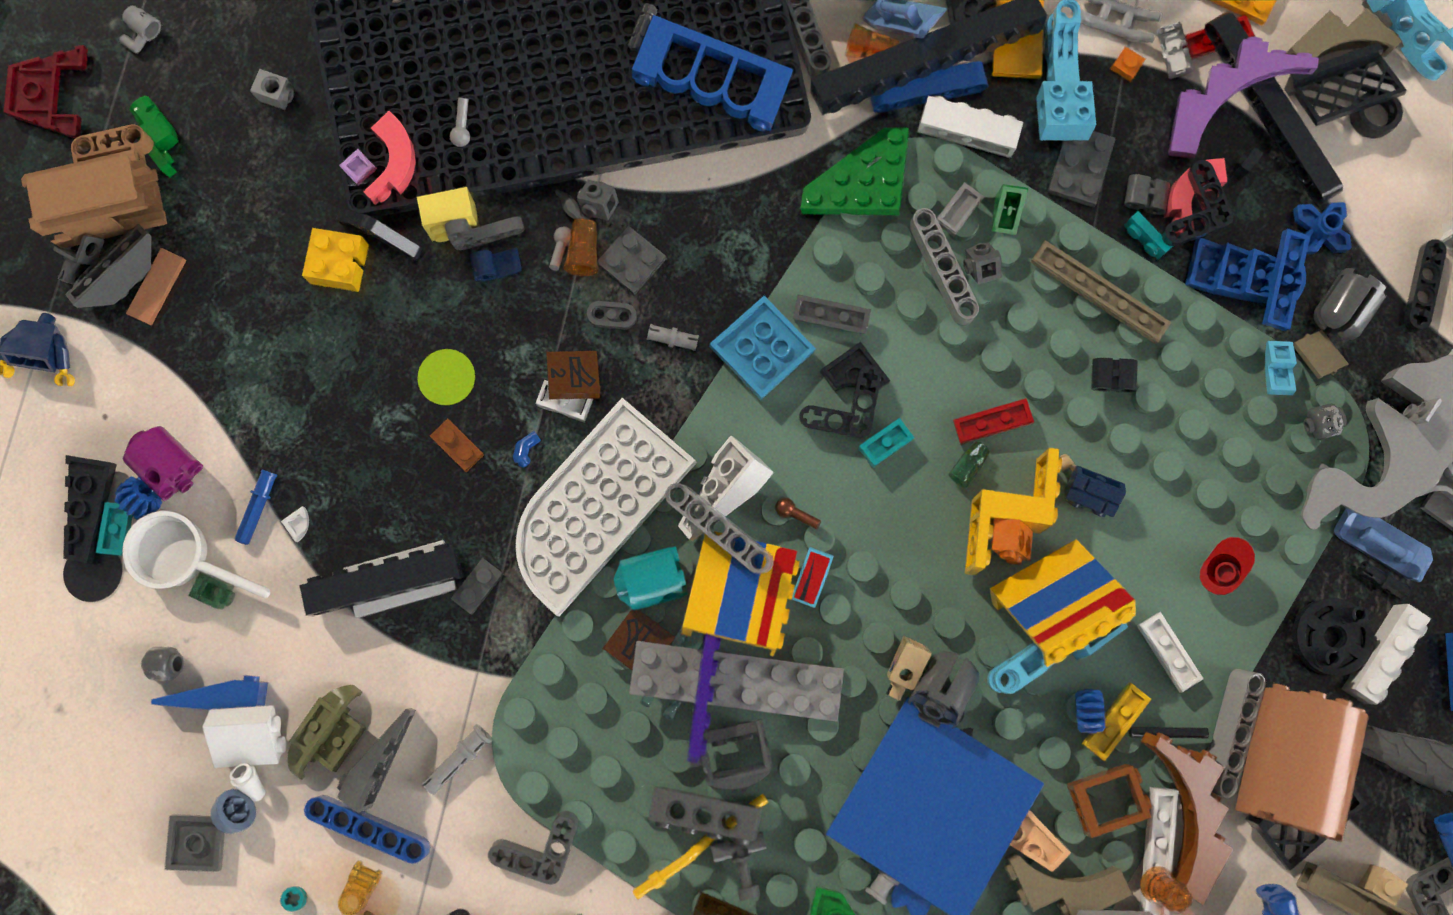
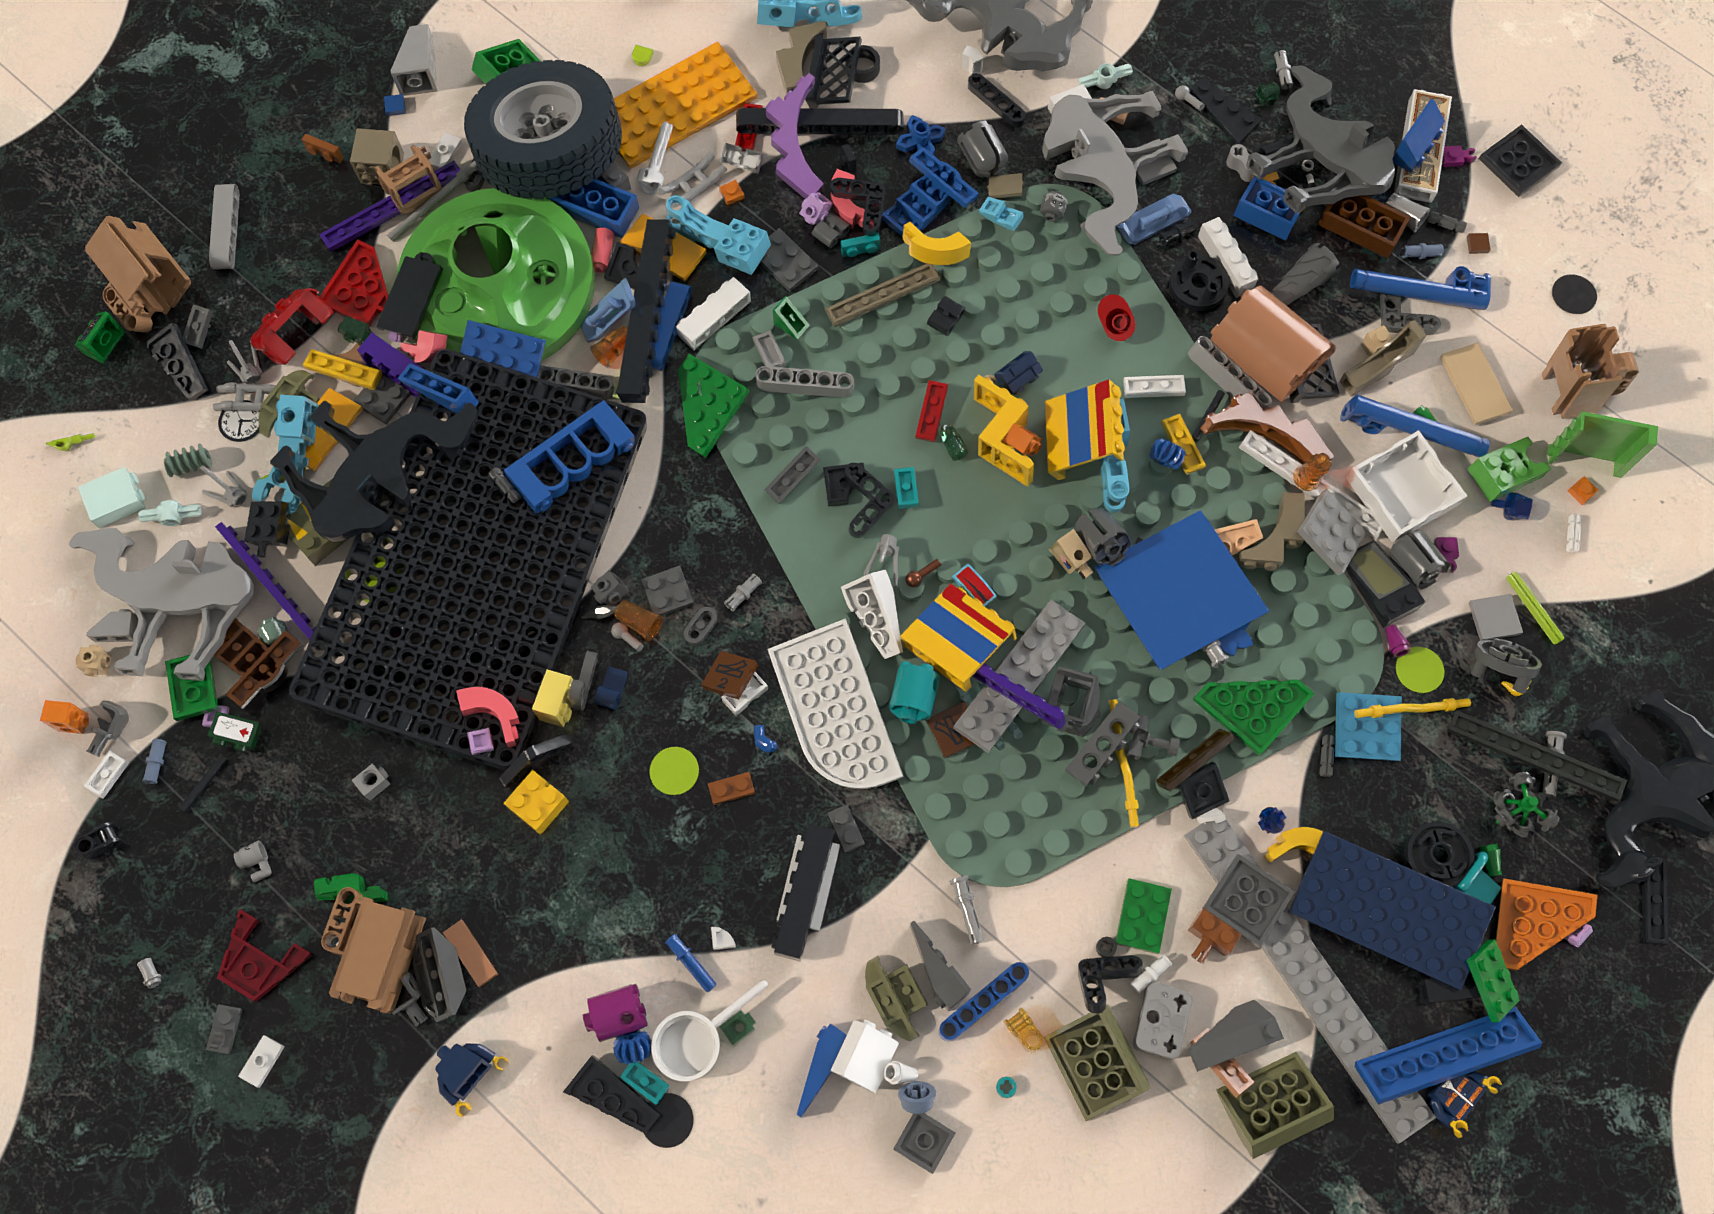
camera: 55 degrees left, 10 degrees down
(162, 663) = (772, 1096): dark grey head -> none
(460, 135) = (502, 655): light grey bar -> none
(540, 860) = (1074, 886): dark grey beam -> none
(707, 522) = (914, 615): light grey beam -> none
(762, 347) = (788, 533): dark azure plate -> none
(804, 458) = (886, 548): none -> light grey plant
(983, 263) = (818, 354): dark grey brick -> none
(1084, 809) = (1232, 494): dark orange window -> none
(1162, 162) = (815, 208): none -> lavender brick
(1186, 320) = (936, 250): none -> yellow arch

